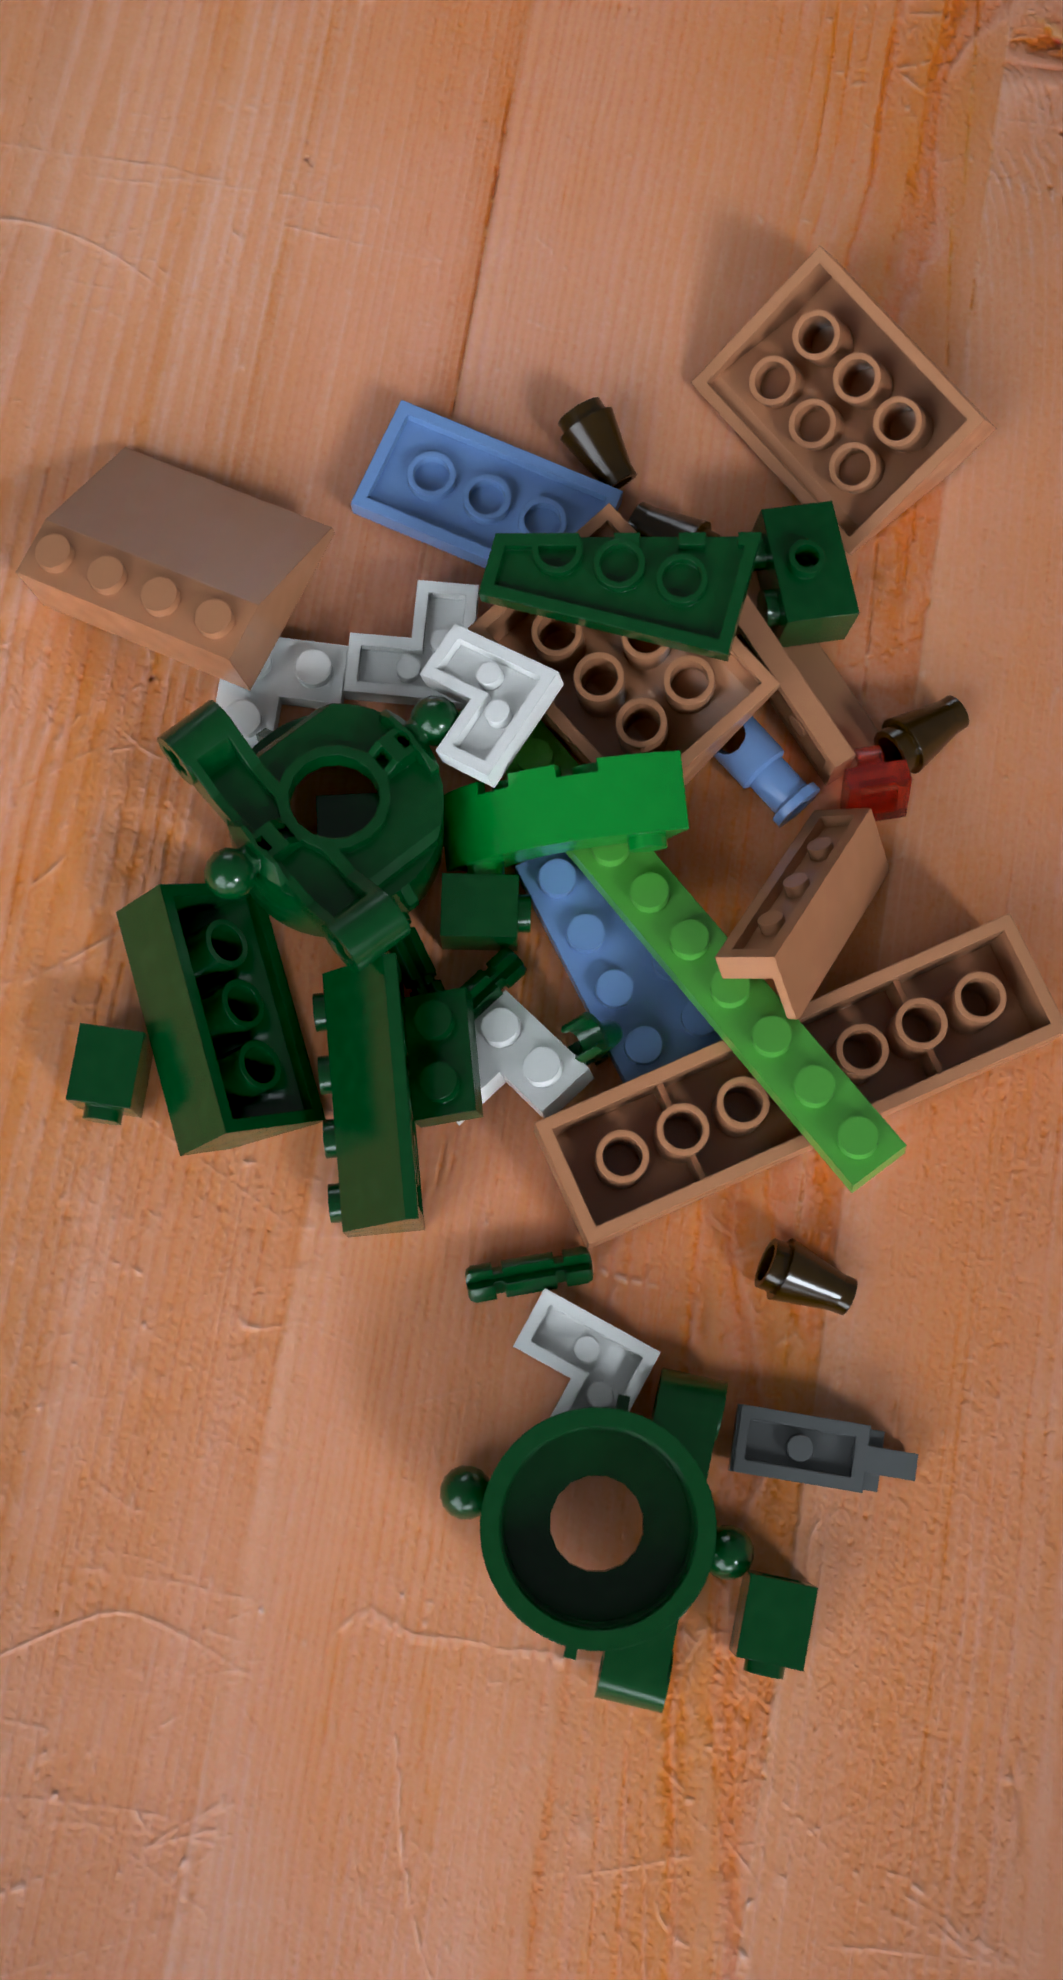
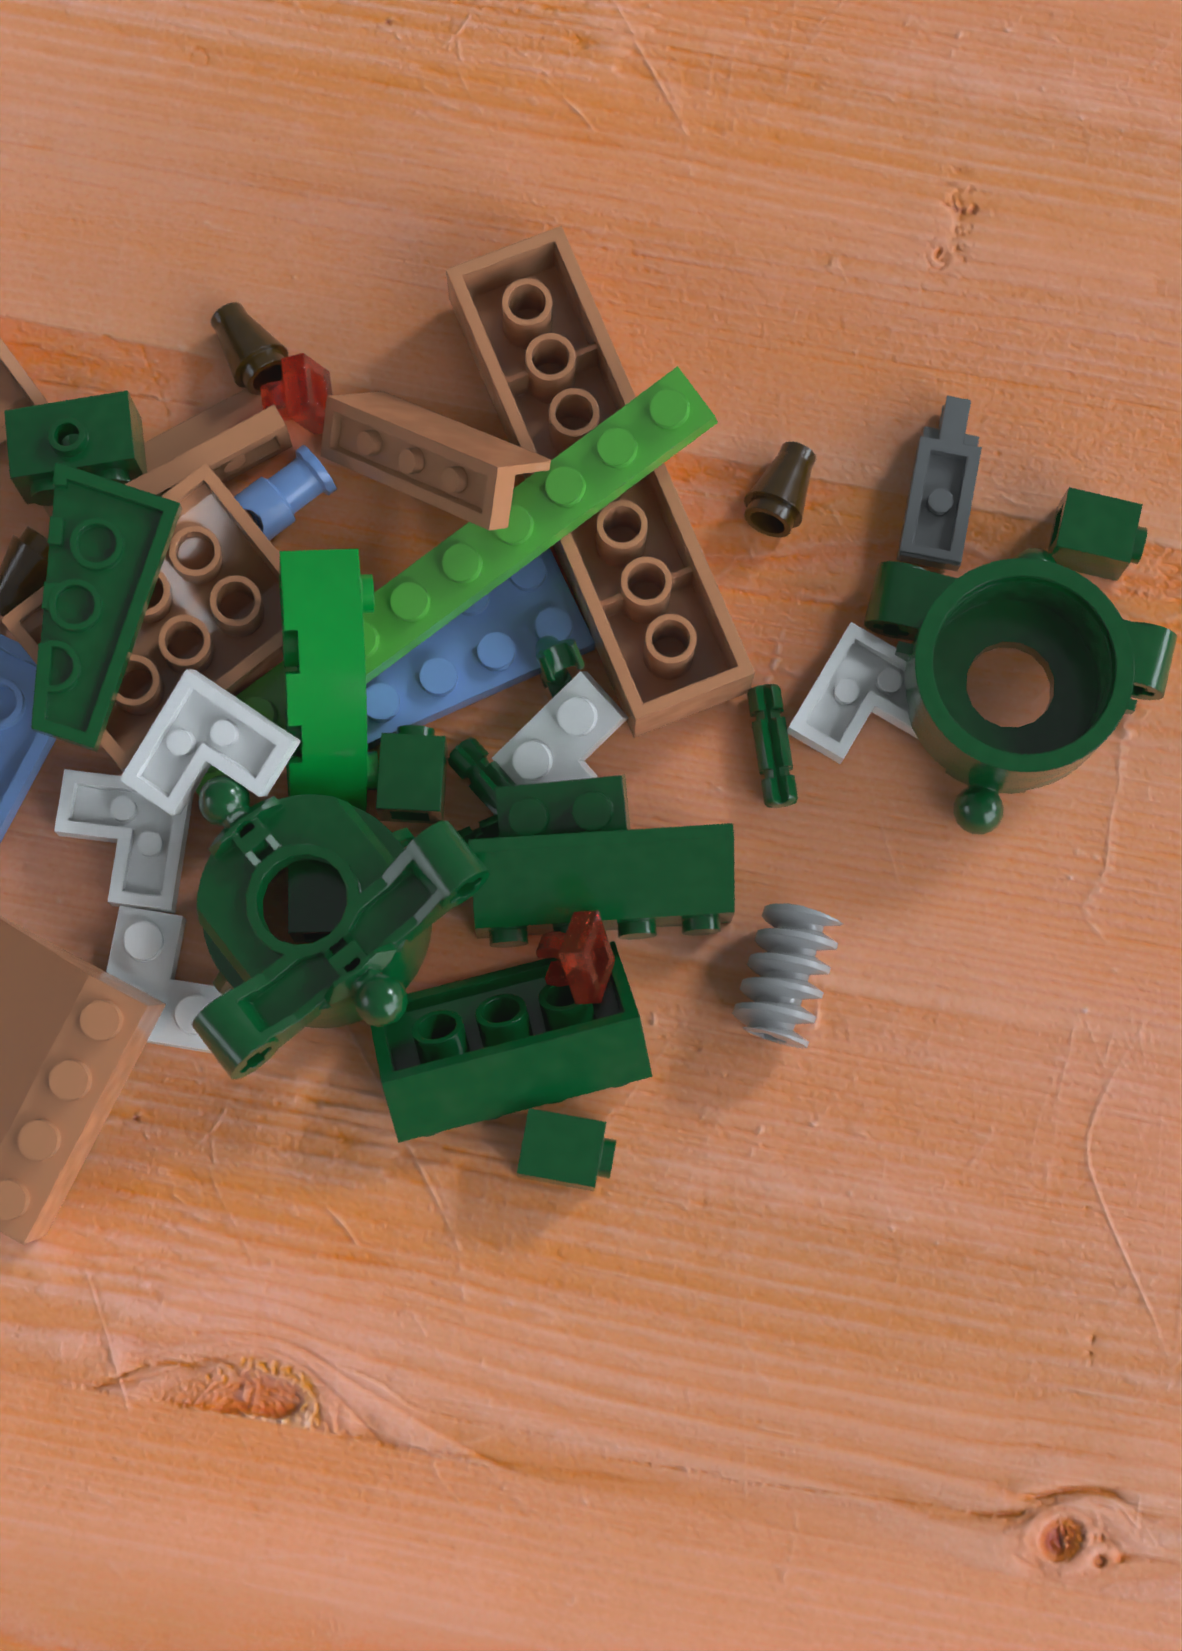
camera: 90 degrees left, 0 degrees up
(282, 1290) = (785, 973): none -> light grey piece
(292, 1077) = (583, 956): none -> clear red tile

